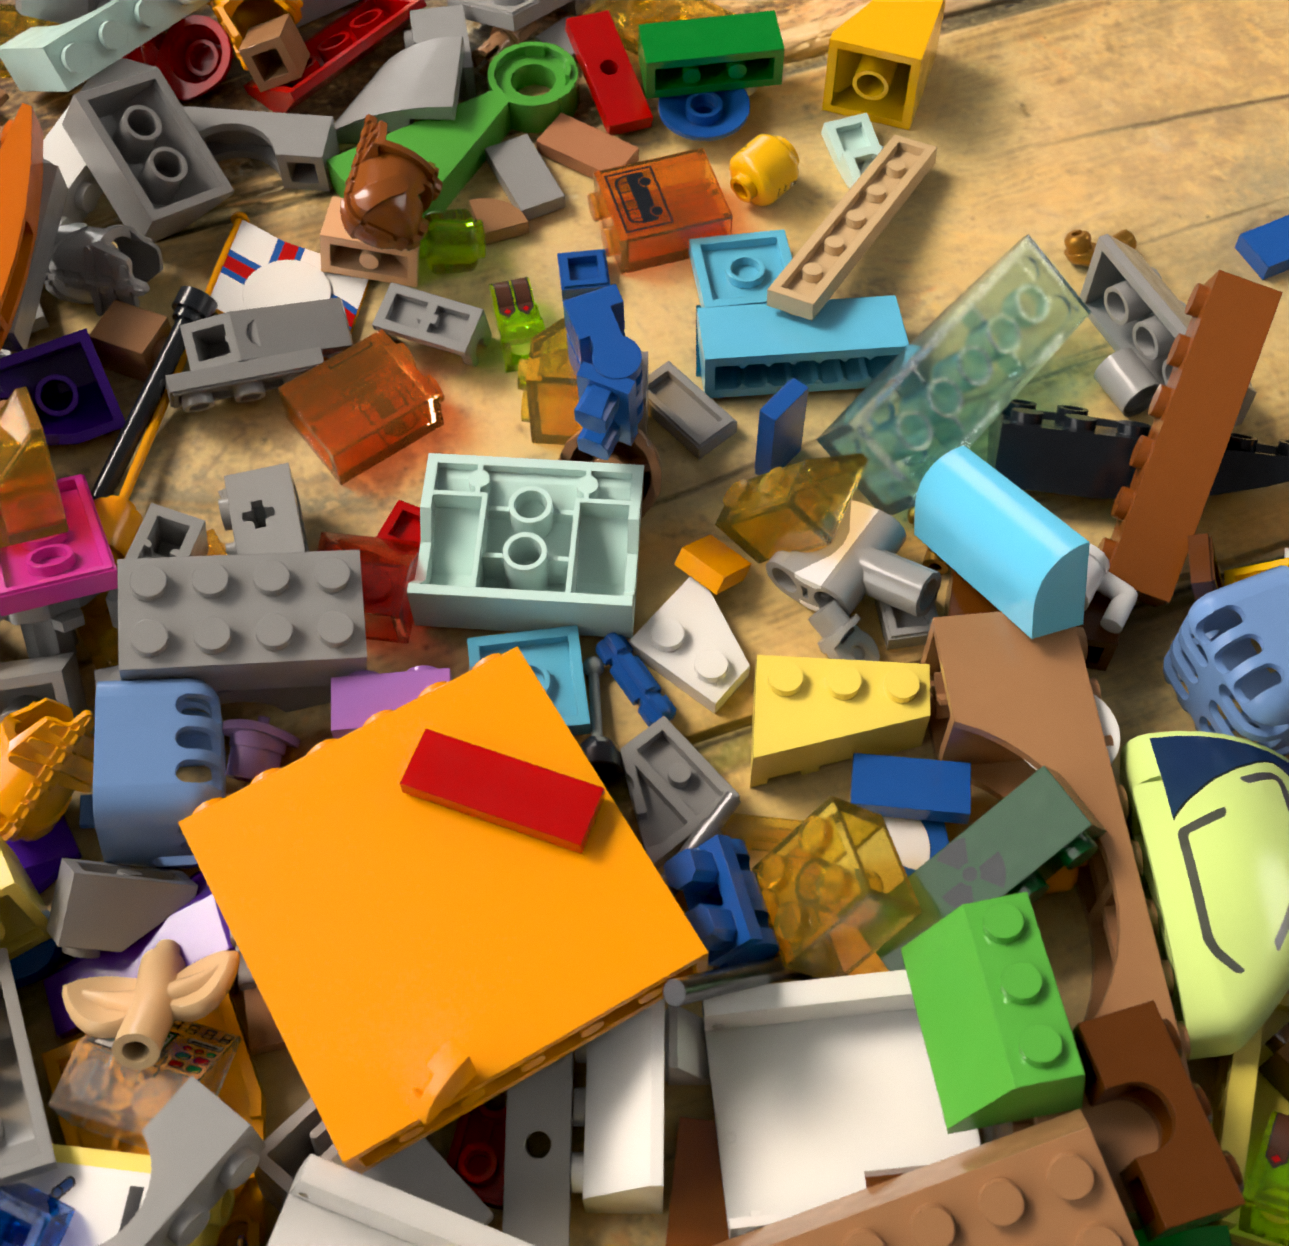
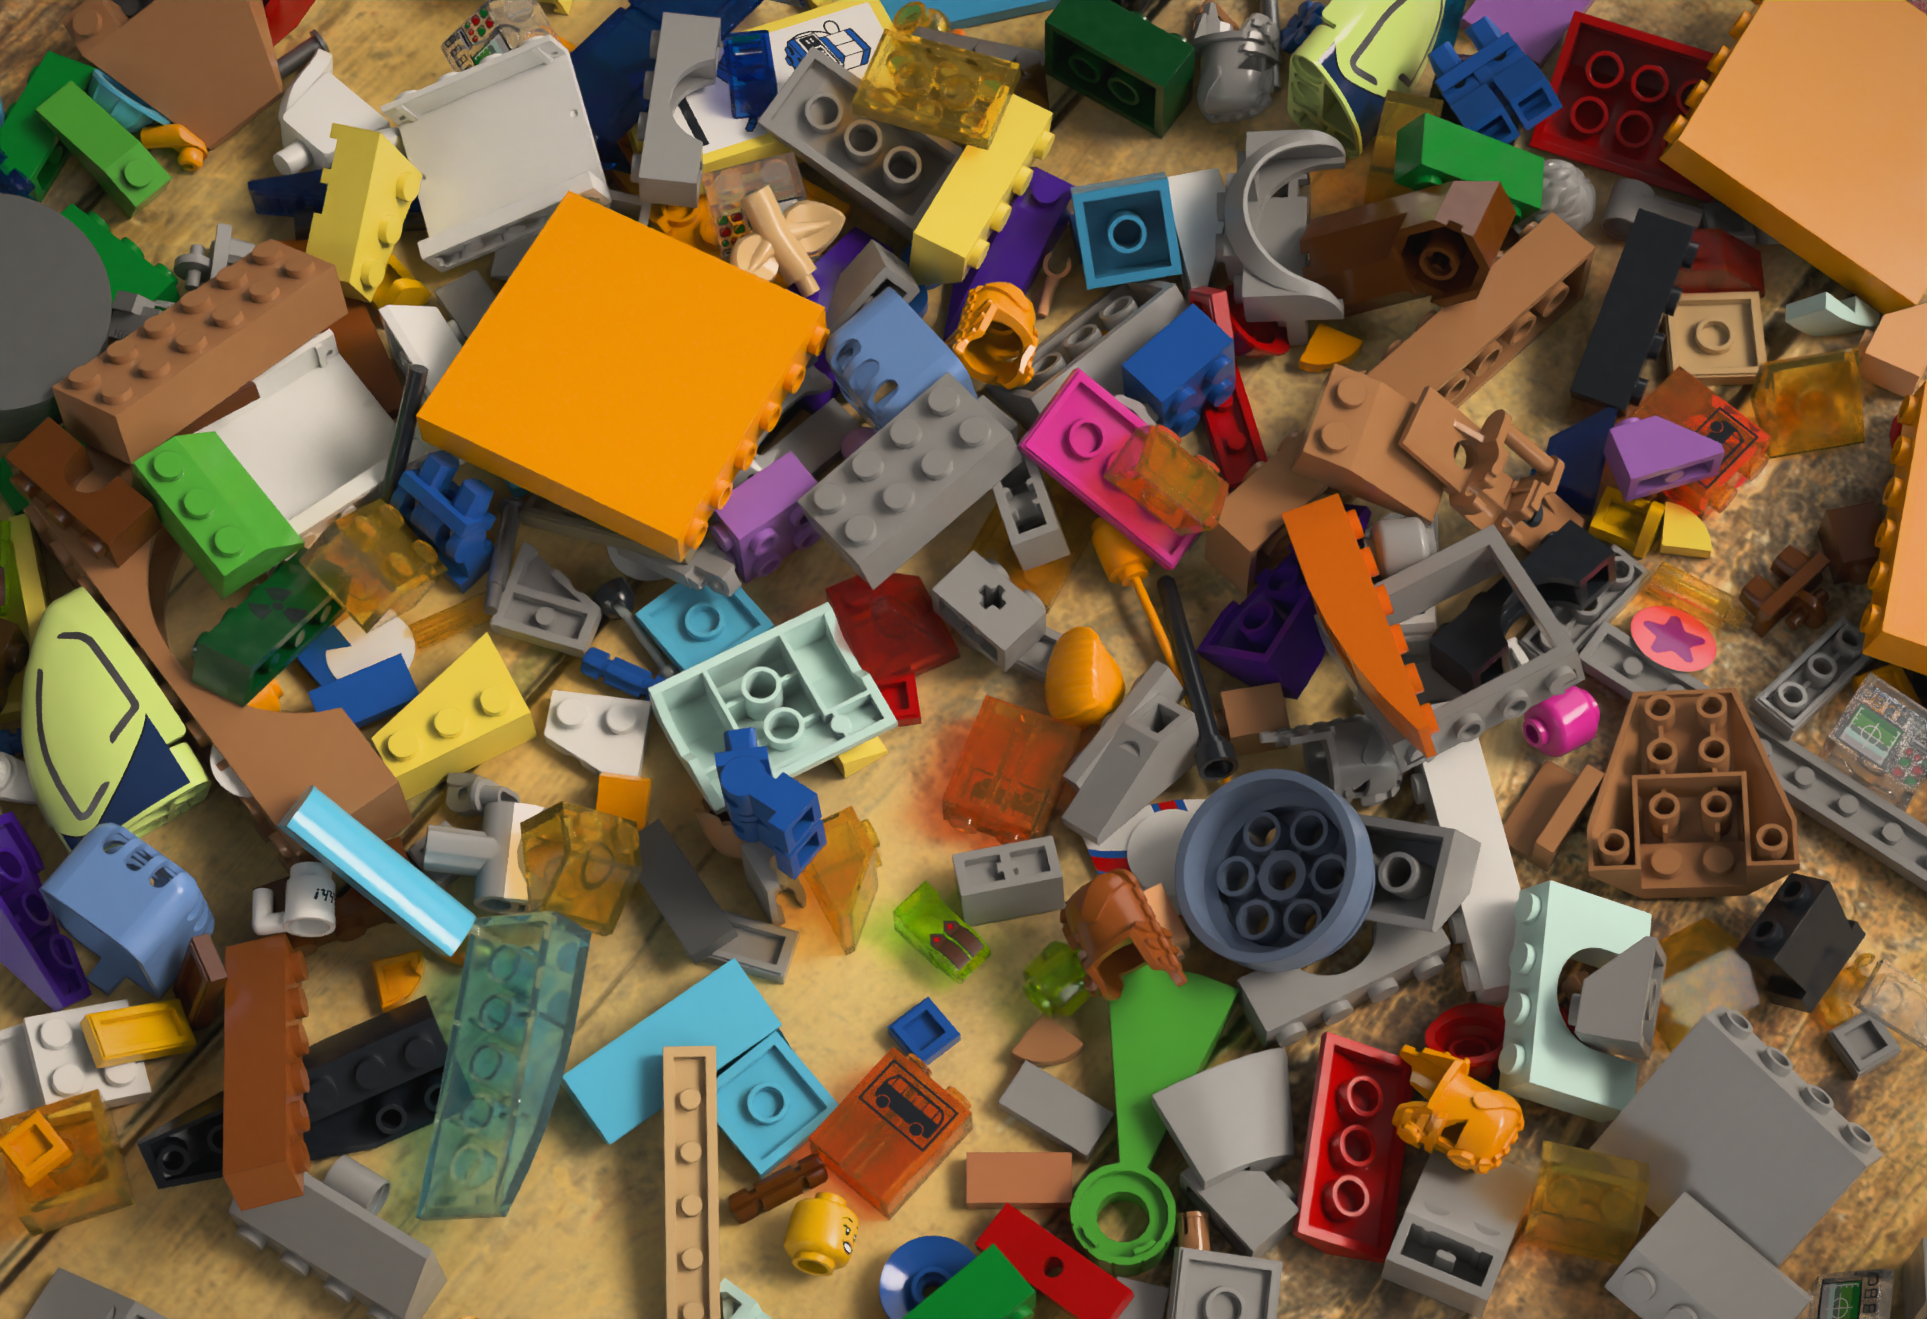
camera: 150 degrees right, 5 degrees up
(248, 428) = (1082, 679): none -> light orange hair
(274, 52) = (1386, 1074): medium nougat brick -> none
(276, 146) = (1229, 840): none -> sand blue wheel
(451, 1074) = (531, 250): light orange tile -> none
(503, 790) = (614, 431): red tile -> none
(712, 456) = (681, 894): none -> dark grey tile
(781, 427) = (629, 929): blue tile -> none
(793, 228) = (777, 1188): none -> reddish brown axle

